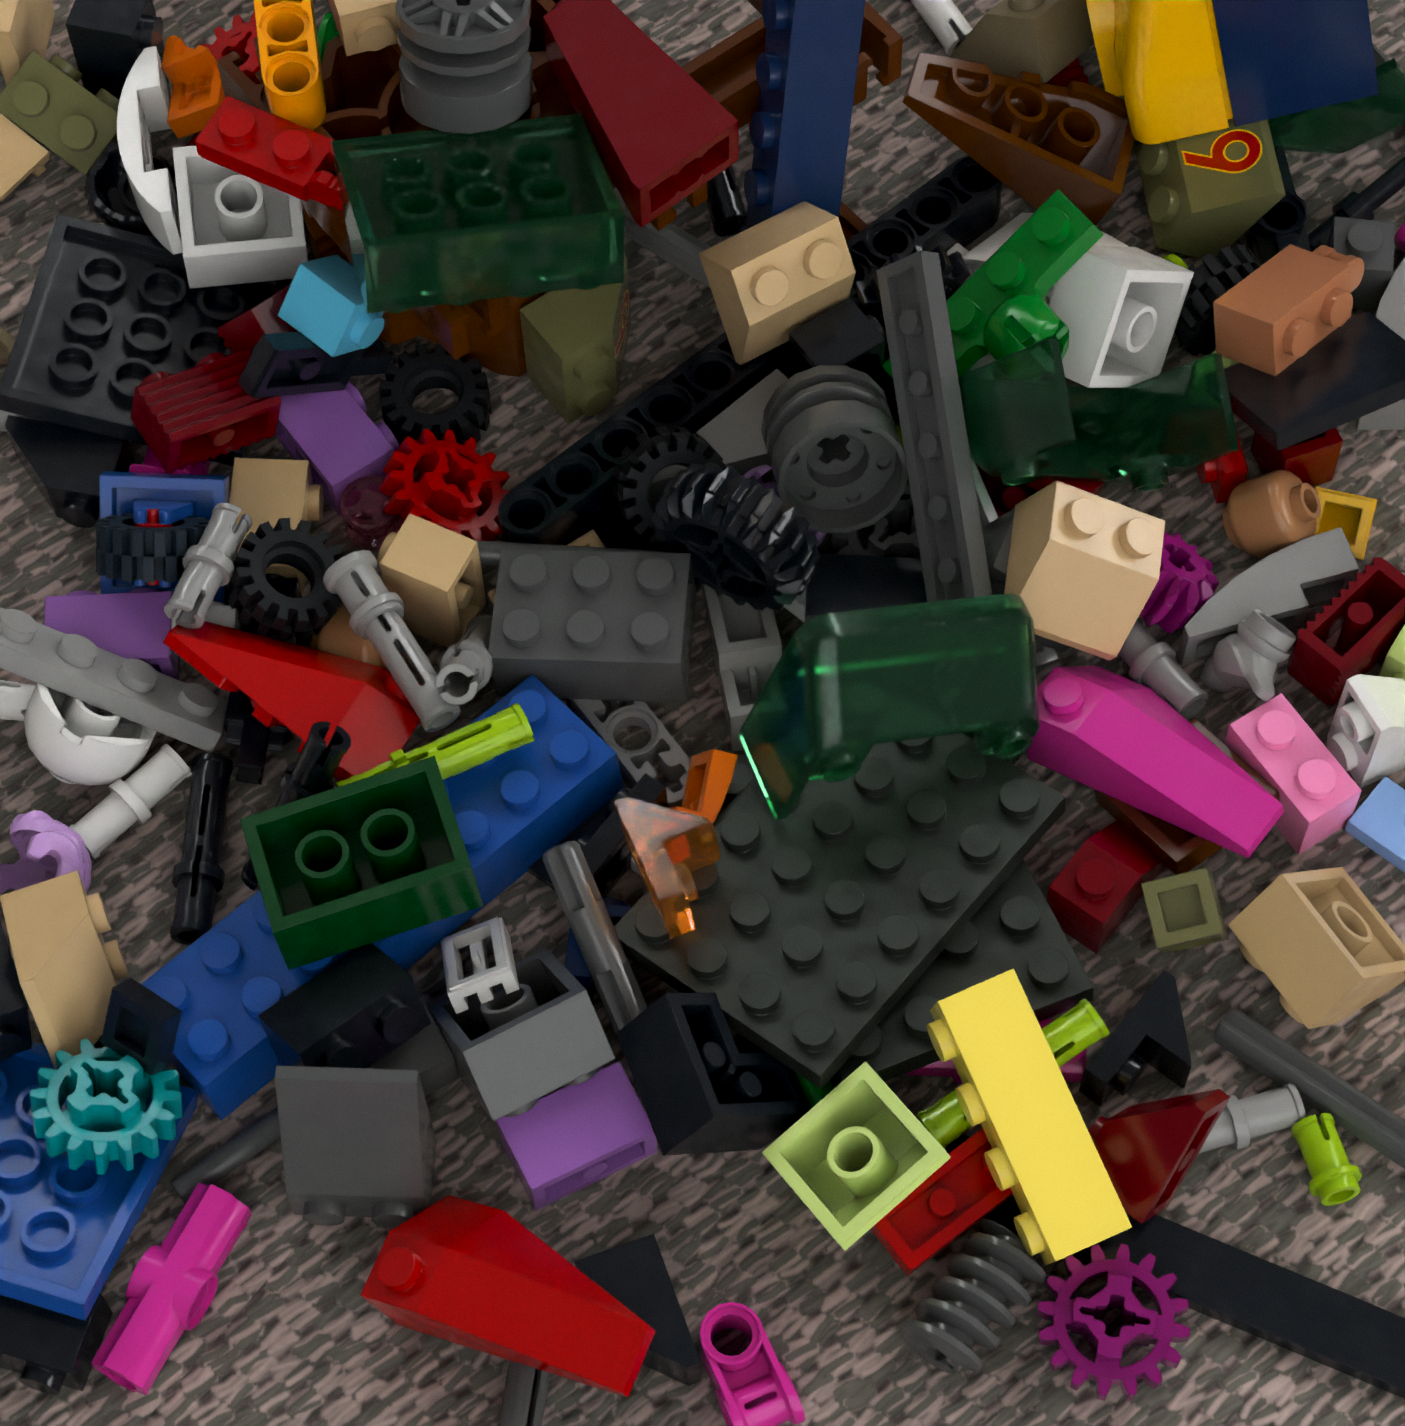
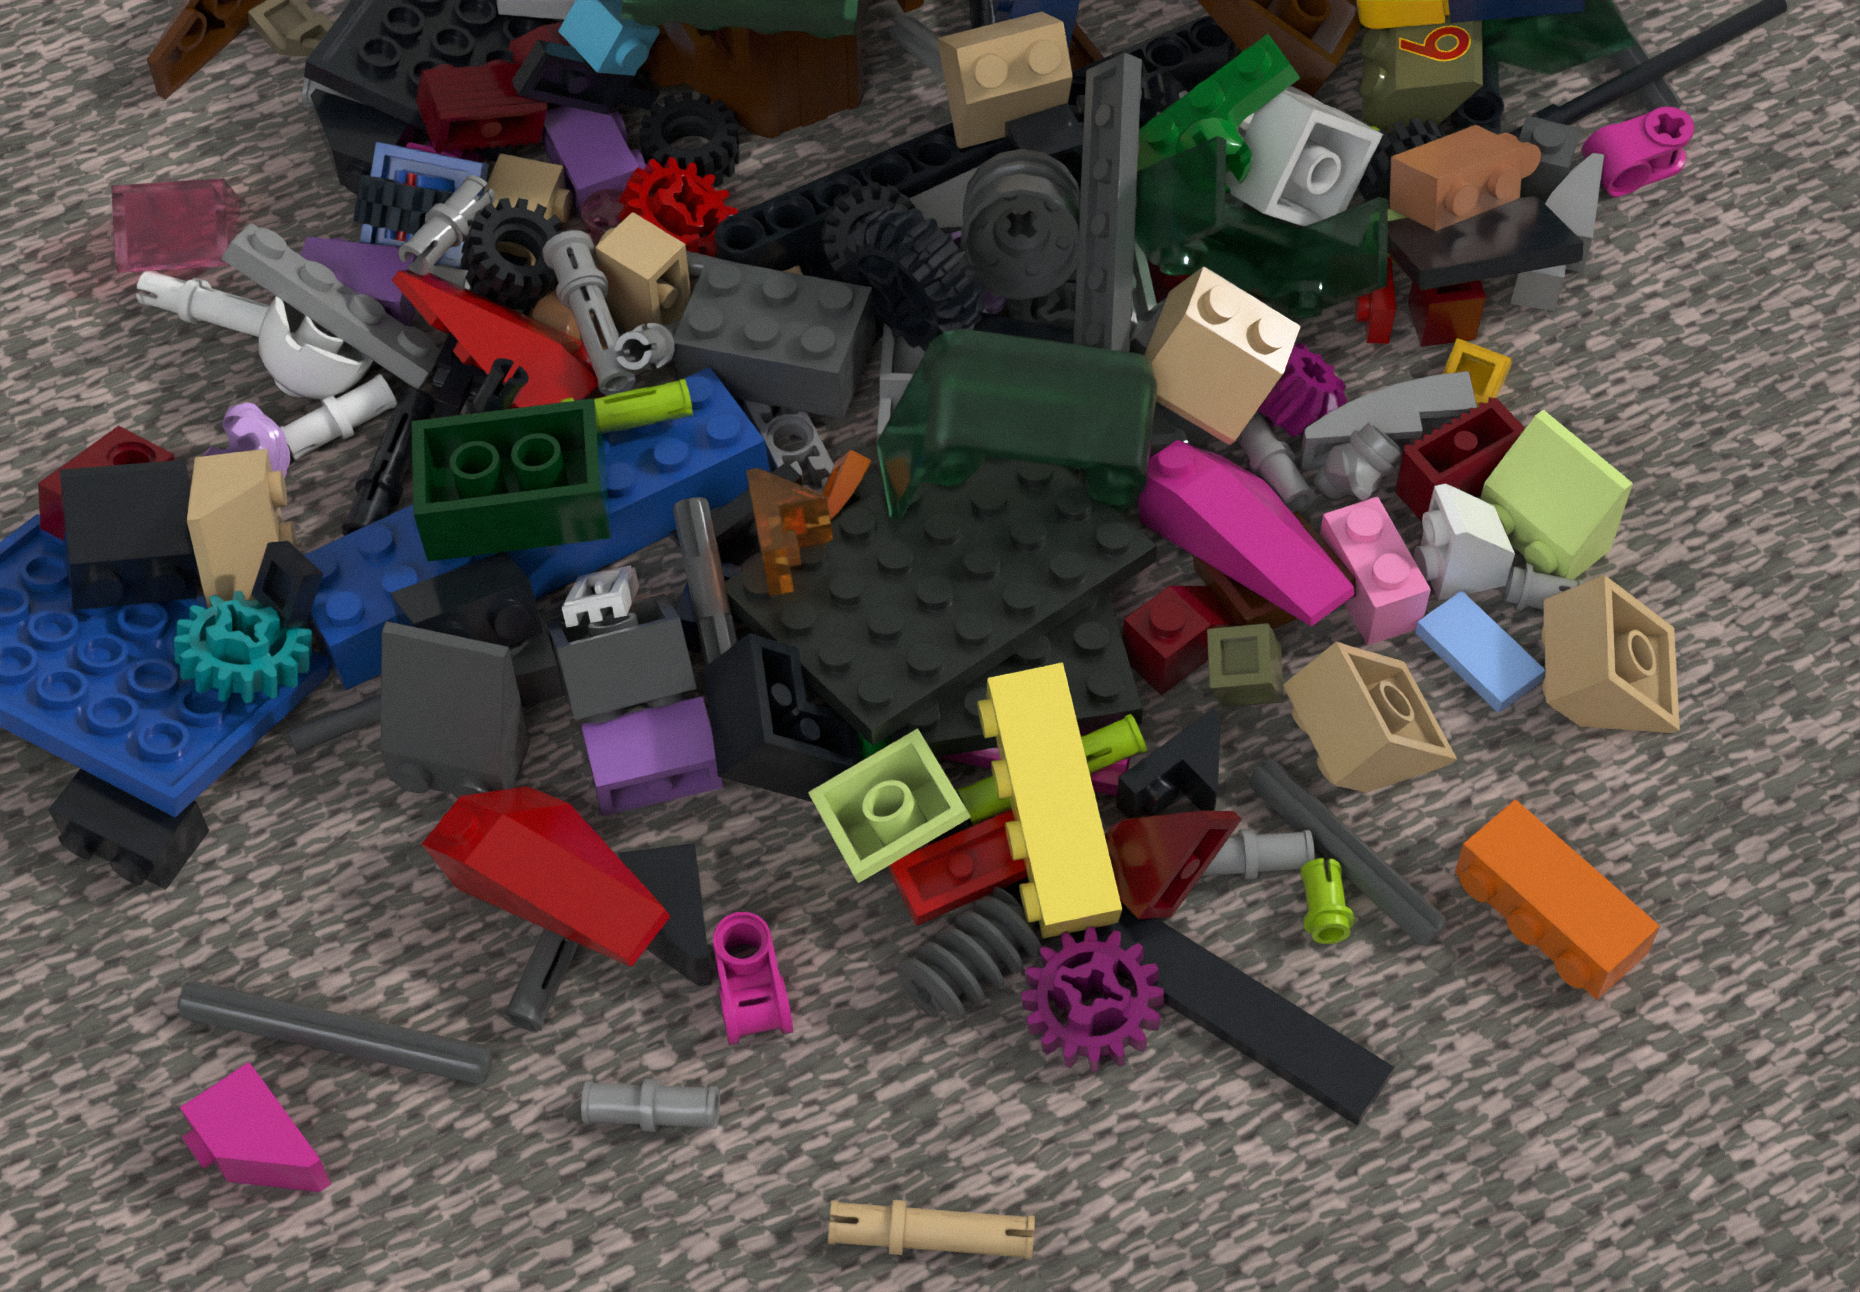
camera: 10 degrees right, 5 degrees down
(171, 1288) = (263, 815): dark pink piece -> none
(577, 346) = (828, 105): olive slope -> none
(1271, 513) = (1409, 349): medium nougat head -> none

